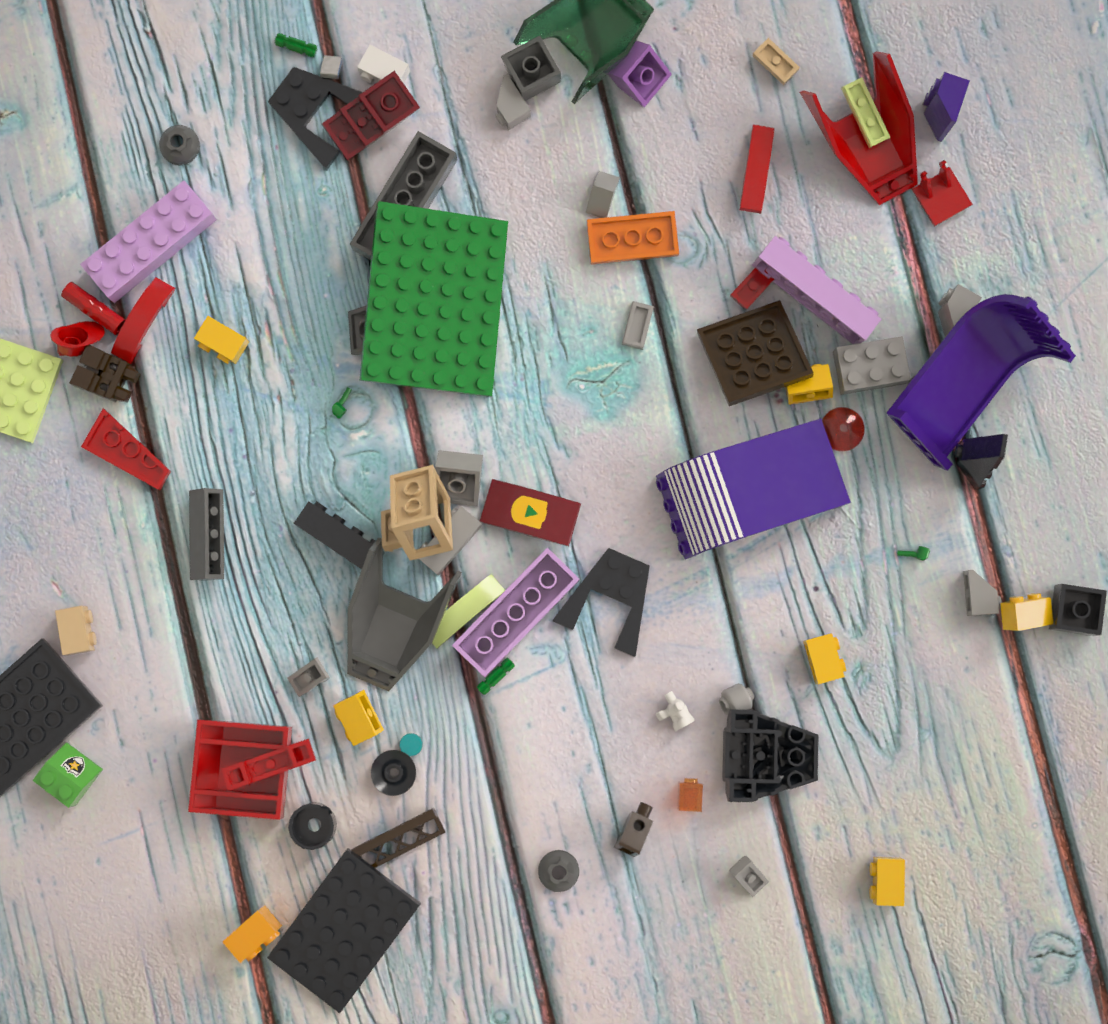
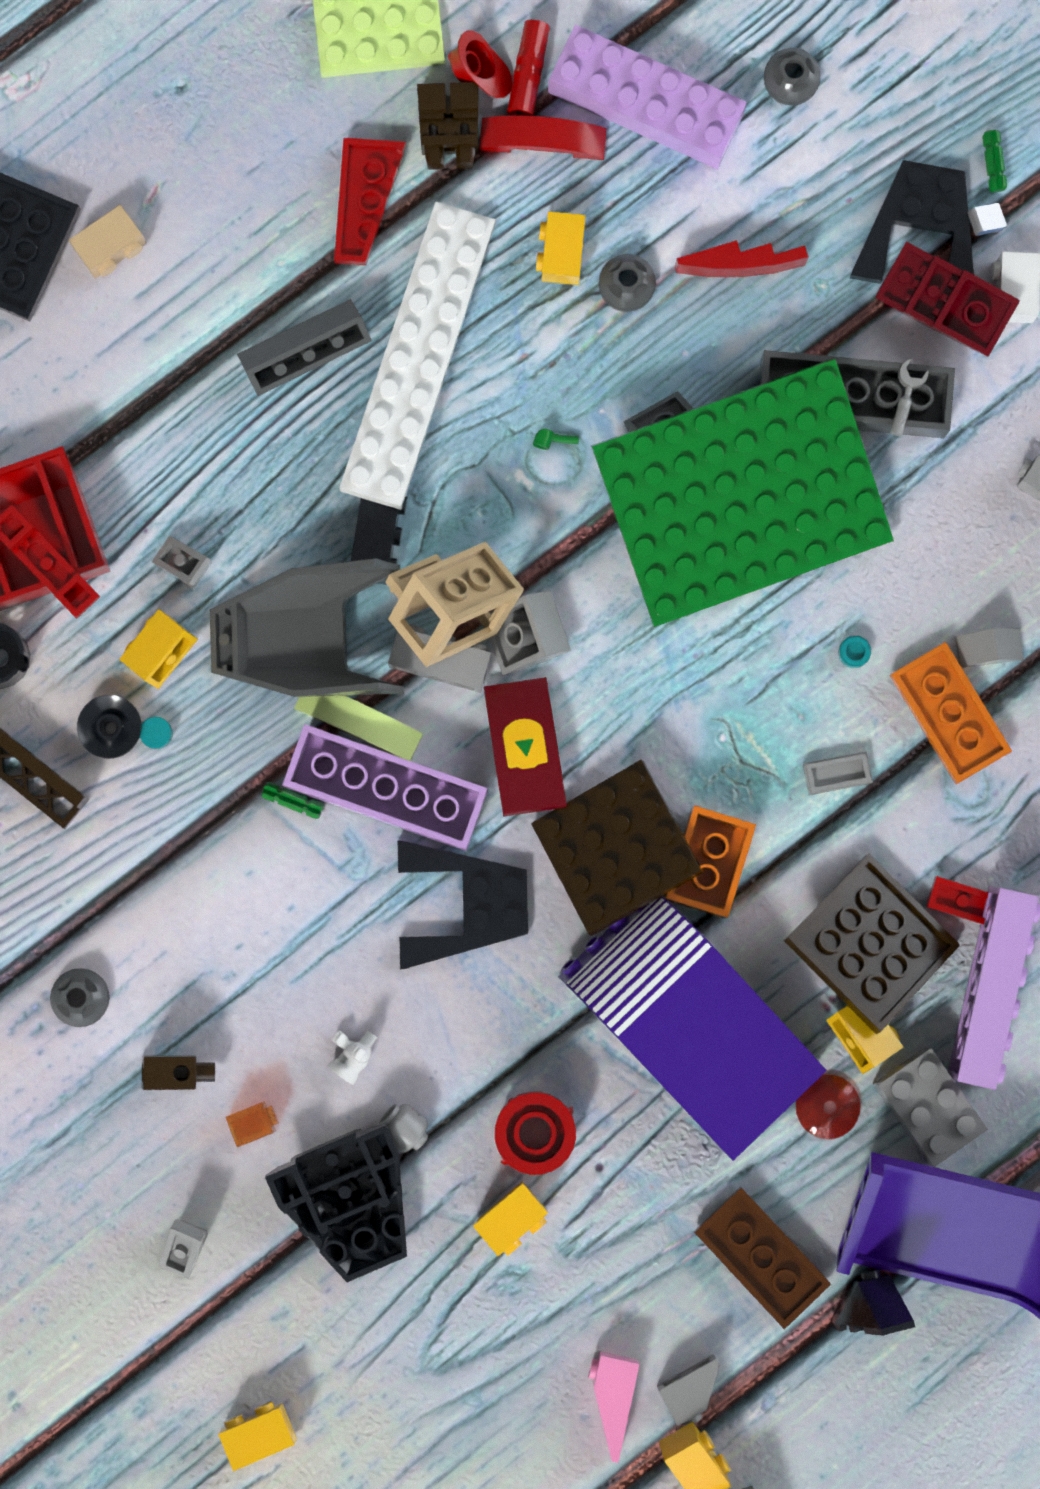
camera: 65 degrees right, 0 degrees up
(247, 464) = (417, 356): none -> white plate
(270, 318) = (623, 297): none -> dark grey piece
(281, 238) = (729, 261): none -> red slope
(428, 174) = (905, 401): none -> light grey piece
(566, 279) = (854, 651): none -> teal tile
(622, 483) = (617, 847): none -> dark brown plate
(657, 430) = (721, 850): none -> orange brick
(795, 613) = (535, 1160): none -> red piece
(917, 513) = (762, 1258): none -> reddish brown plate
(921, 554) = (710, 1288): green hand -> none
(957, 642) = (614, 1389): none -> bright pink slope

